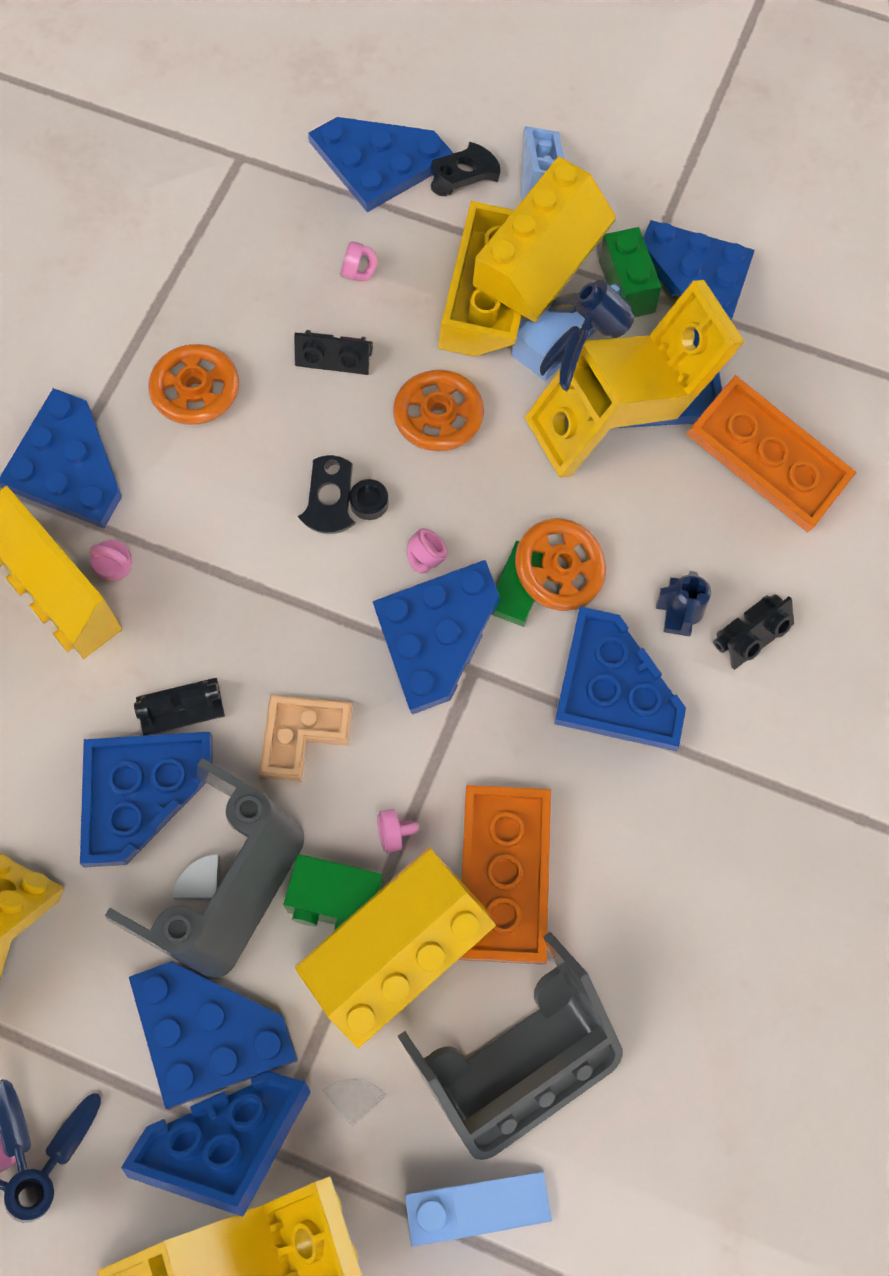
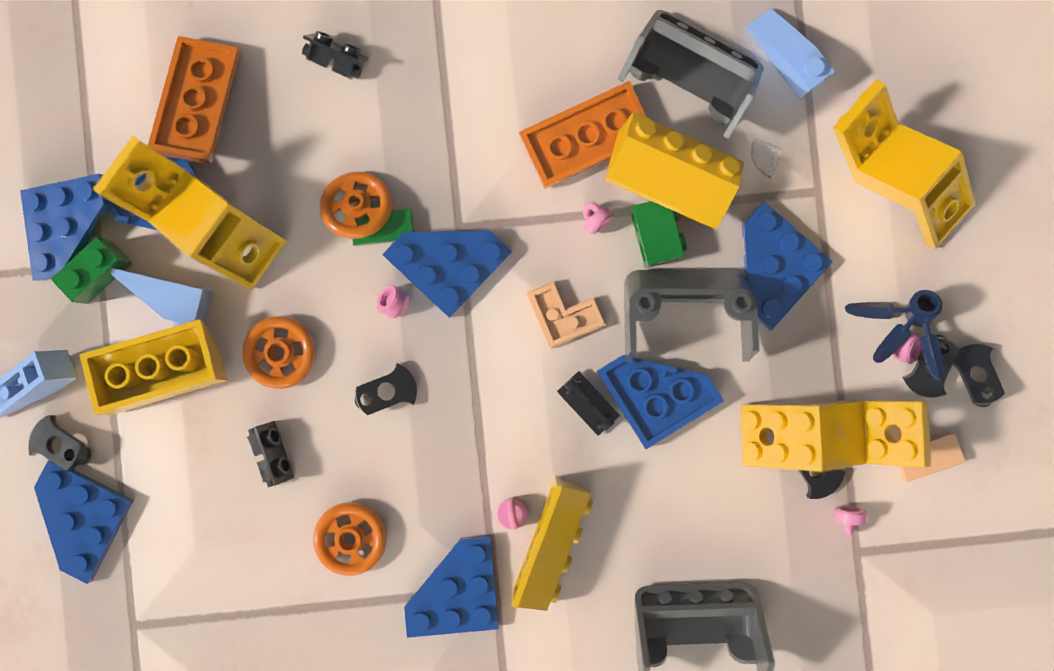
camera: 115 degrees left, 20 degrees up
(198, 880) = (691, 322): white tile -> none
(222, 1145) = (836, 215): blue plate -> none
(352, 260) = (187, 482): bright pink tile -> none
(369, 499) = (373, 363): black tile -> none
(544, 240) = (104, 336): yellow slope -> none
(601, 309) = (154, 257): dark blue plant -> none
(616, 686) = (423, 127): blue plate -> none
(684, 603) = (340, 109): dark blue piece -> none

